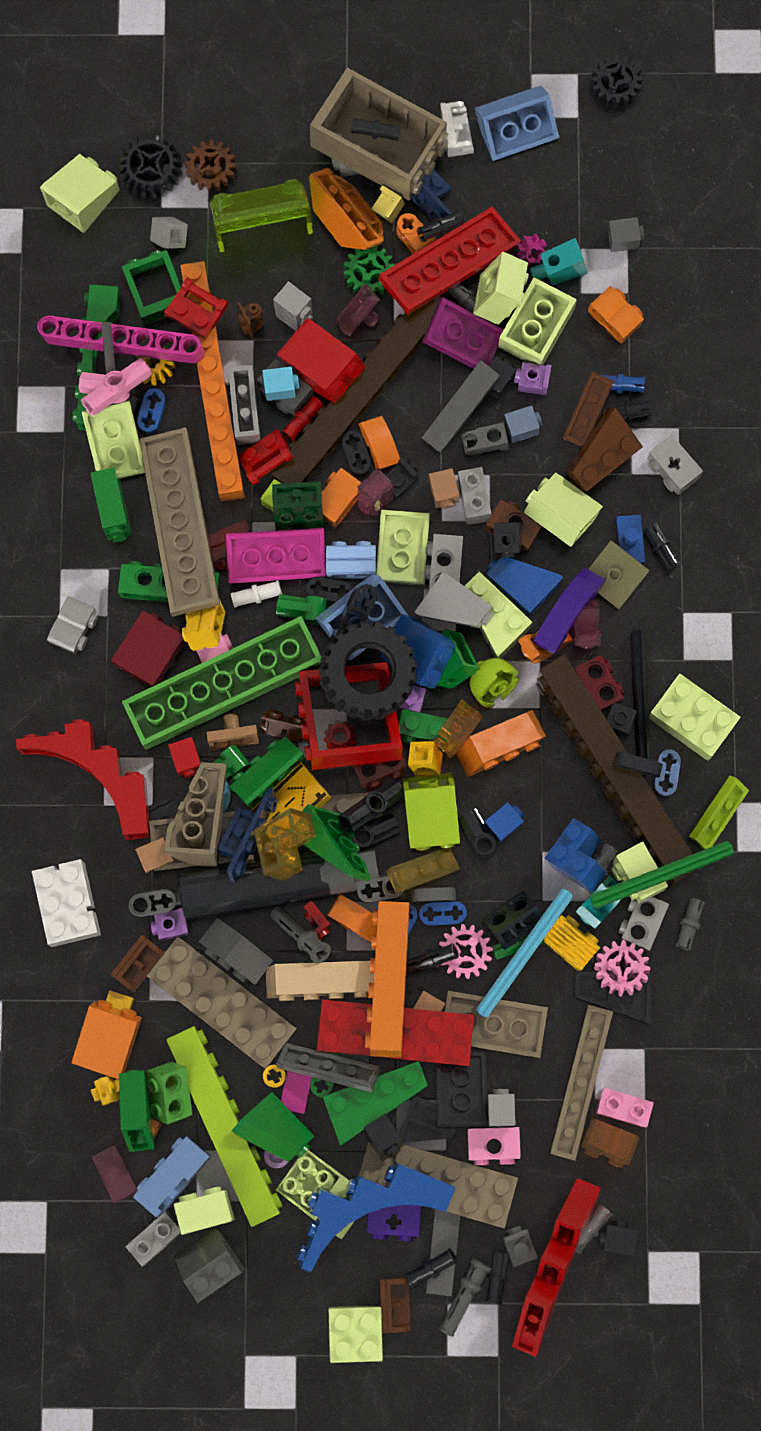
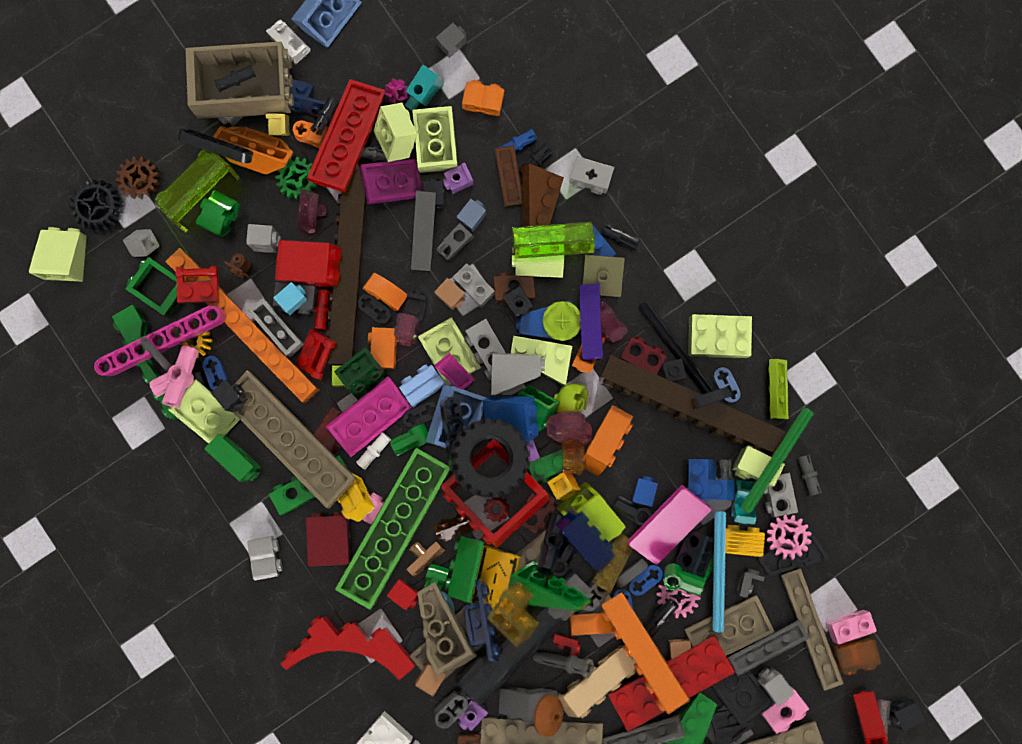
camera: 40 degrees left, 5 degrees up
(151, 440) = (230, 396): none -> black brick
(247, 976) = (548, 715): none -> dark orange dish
(265, 253) = (218, 213): none -> green brick
(310, 183) = (215, 145): none -> black beam
(393, 568) = (454, 372): none -> dark pink tile
(409, 822) = (586, 539): none -> clear blue brick
(471, 696) = (569, 425): none -> clear pink brick
(481, 936) = (677, 579): none -> green piece
(505, 870) = (669, 525): none -> tile
(521, 1068) = (768, 648): none -> dark grey tile
(538, 589) = (562, 321): none -> lime tile
(543, 989) = (745, 585): none -> dark grey bracket
(586, 501) = (553, 240): none -> clear neon green brick

